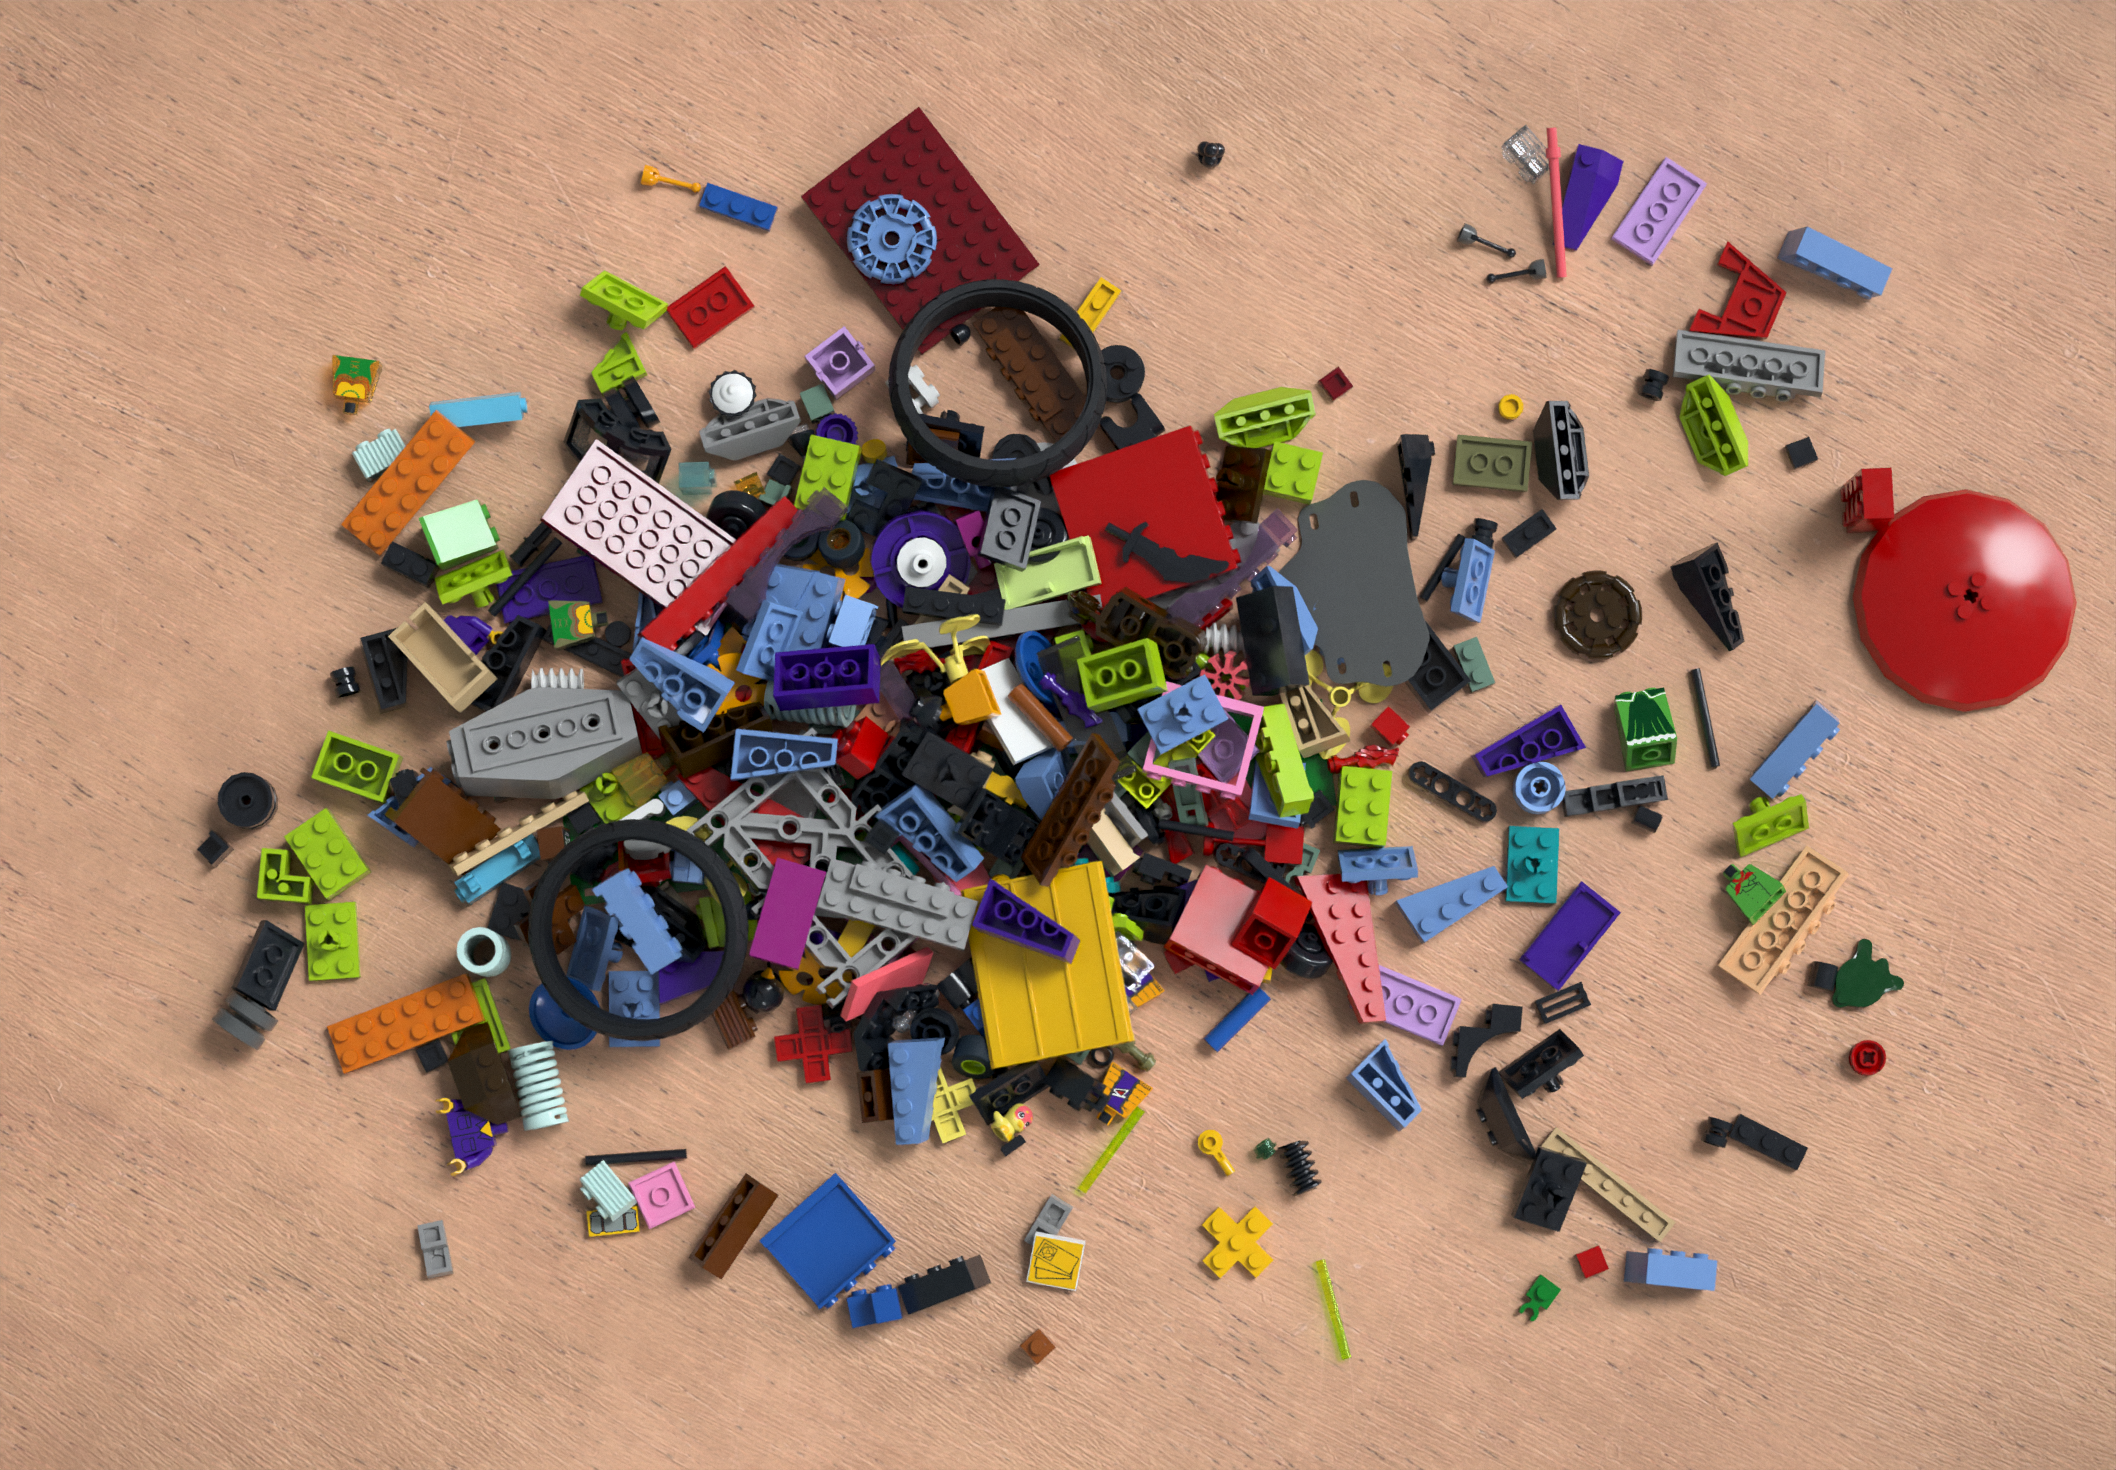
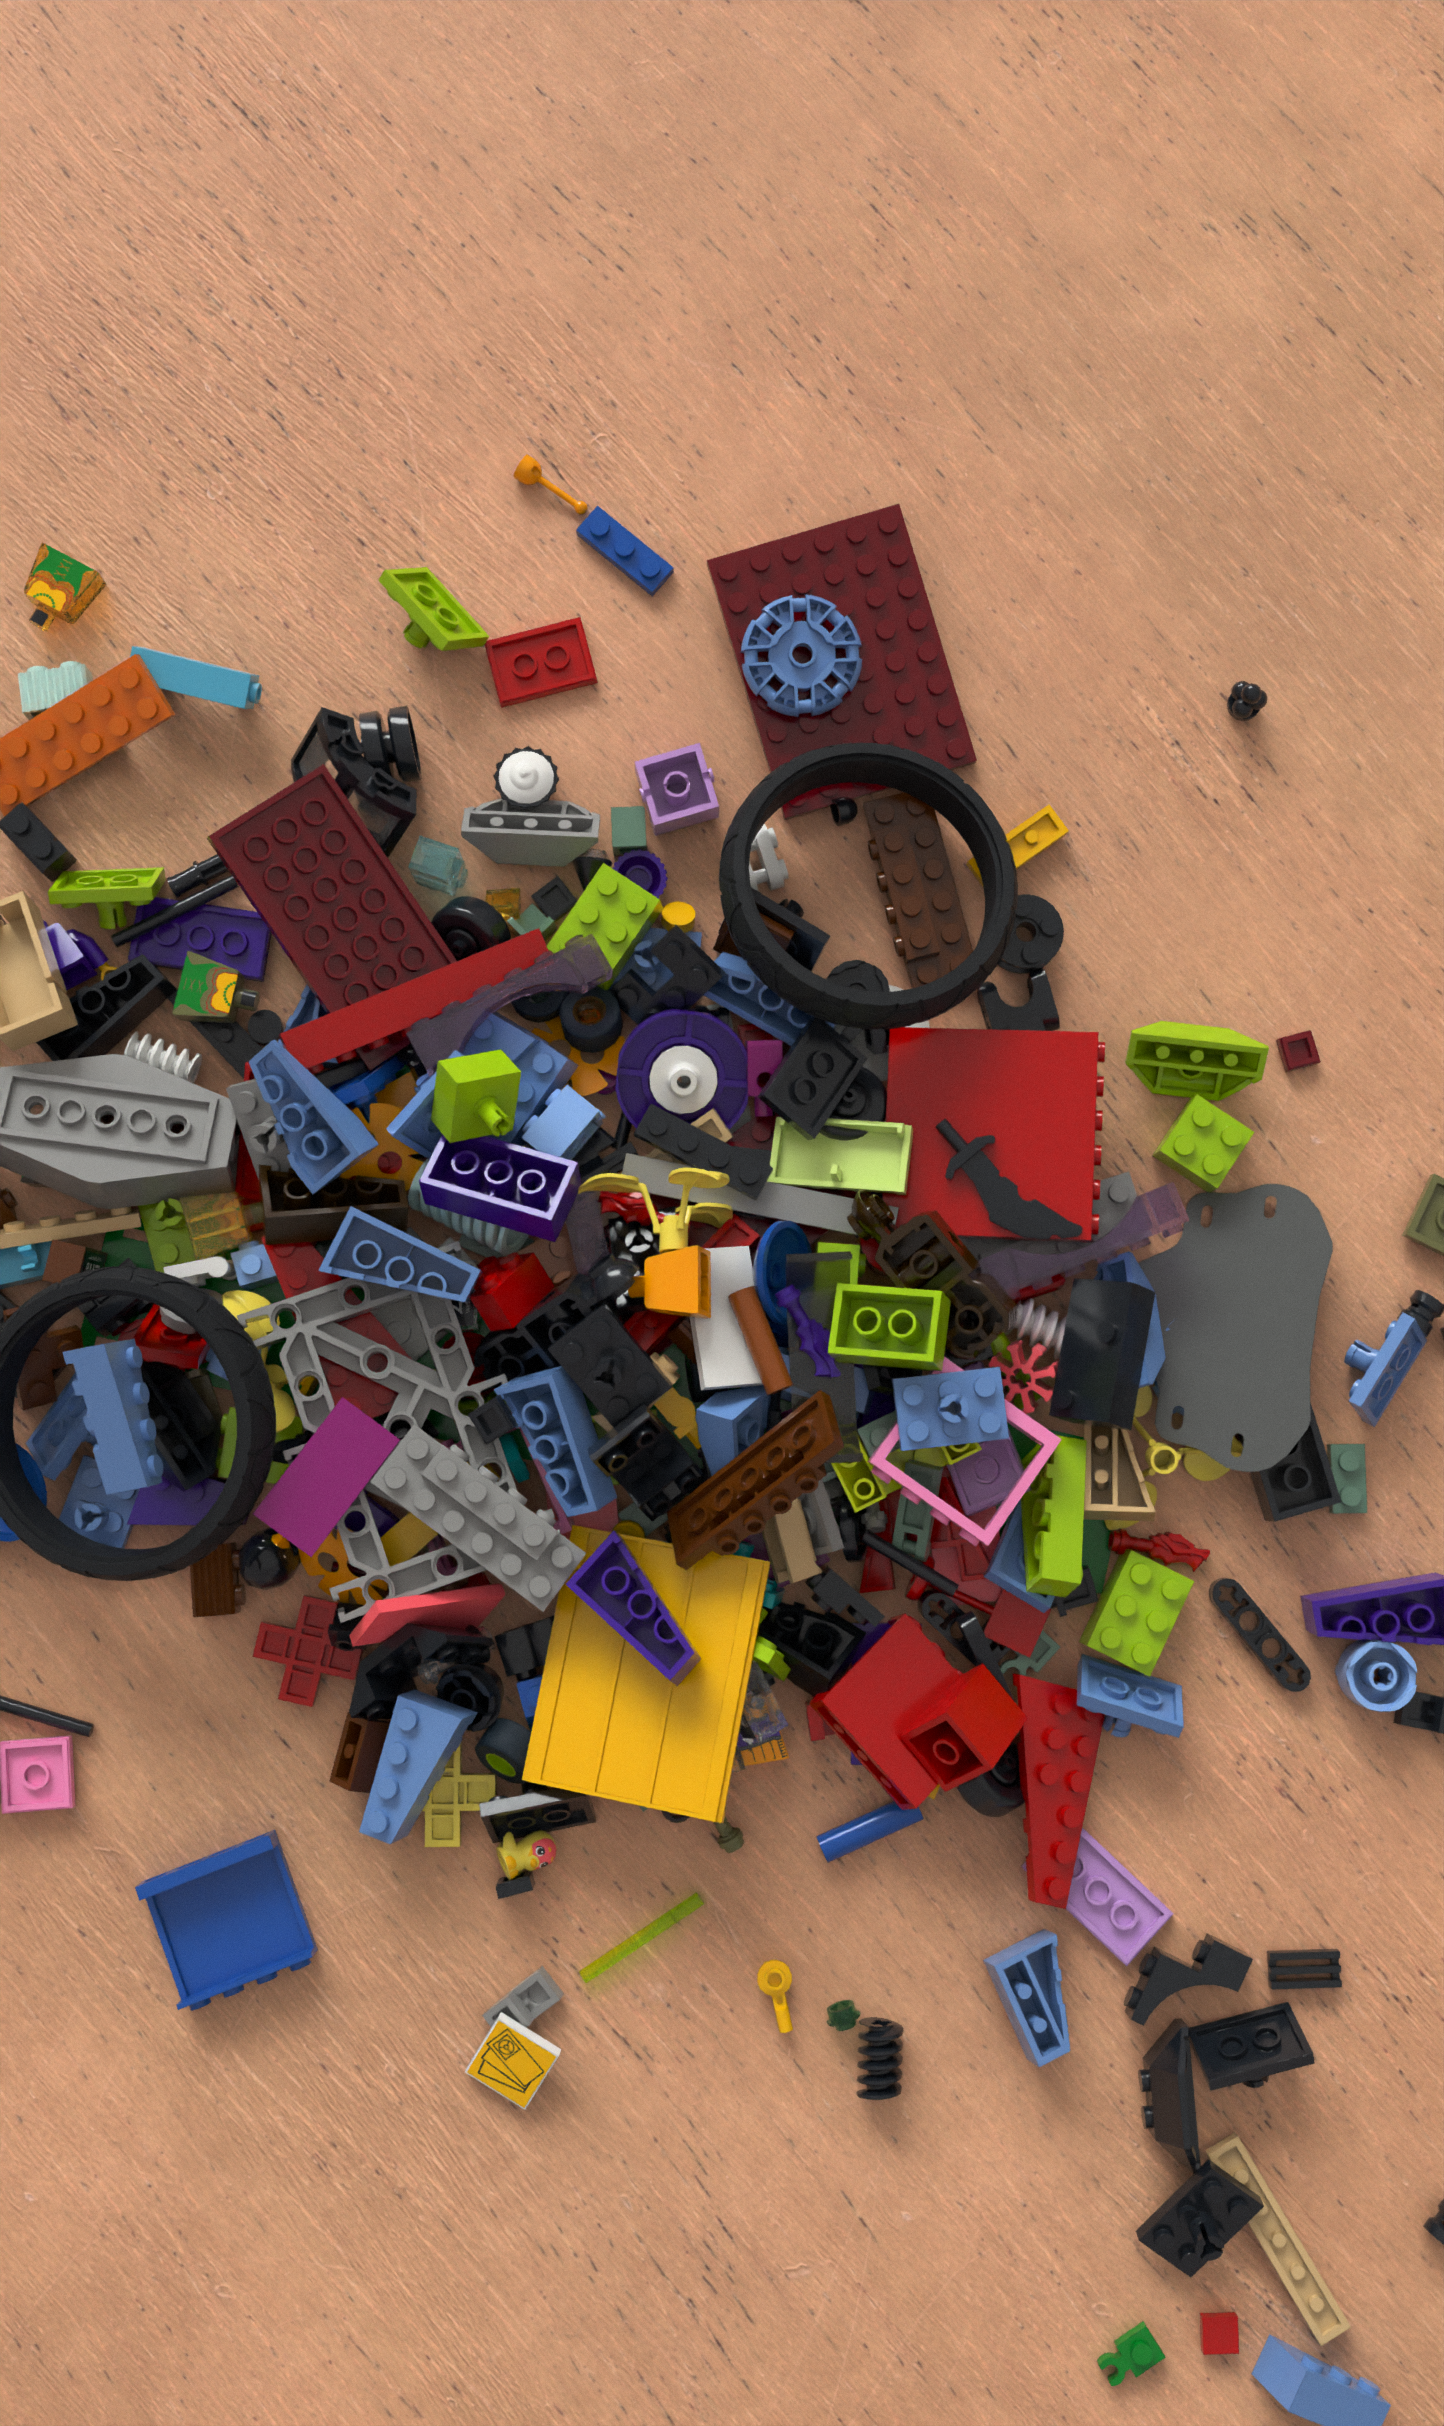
camera: 20 degrees right, 0 degrees up
(459, 534) = (111, 825): slope -> none
(583, 817) = (129, 1244): black tile -> none
(618, 365) = (397, 689): lime wing -> none
(735, 1226) = (110, 1854): reddish brown brick -> none
(789, 625) = (475, 1096): none -> lime brick
(874, 1307) = (254, 2033): blue brick -> none
(943, 1283) = (355, 2037): black wedge -> none
(1037, 1346) = (446, 2167): dark orange brick -> none
(1076, 1086) = (627, 1843): black brick -> none
(1125, 1093) = (681, 1870): torso -> none
(1237, 1242) = (760, 2125): yellow plate -> none
(1242, 483) = (1136, 1132): dark brown plate -> none
(1333, 1309) = (853, 2264): clear neon green bar -> none
(1390, 727) = (1210, 1520): red brick -> none
(1415, 464) = (1365, 1190): black wedge -> none
(1445, 562) = (1349, 1337): black bar -> none
(1445, 904) = (1202, 1782): medium blue wedge -> none
(1532, 864) = (1329, 1770): teal plate -> none
(1569, 936) = (1346, 1885): dark purple container -> none

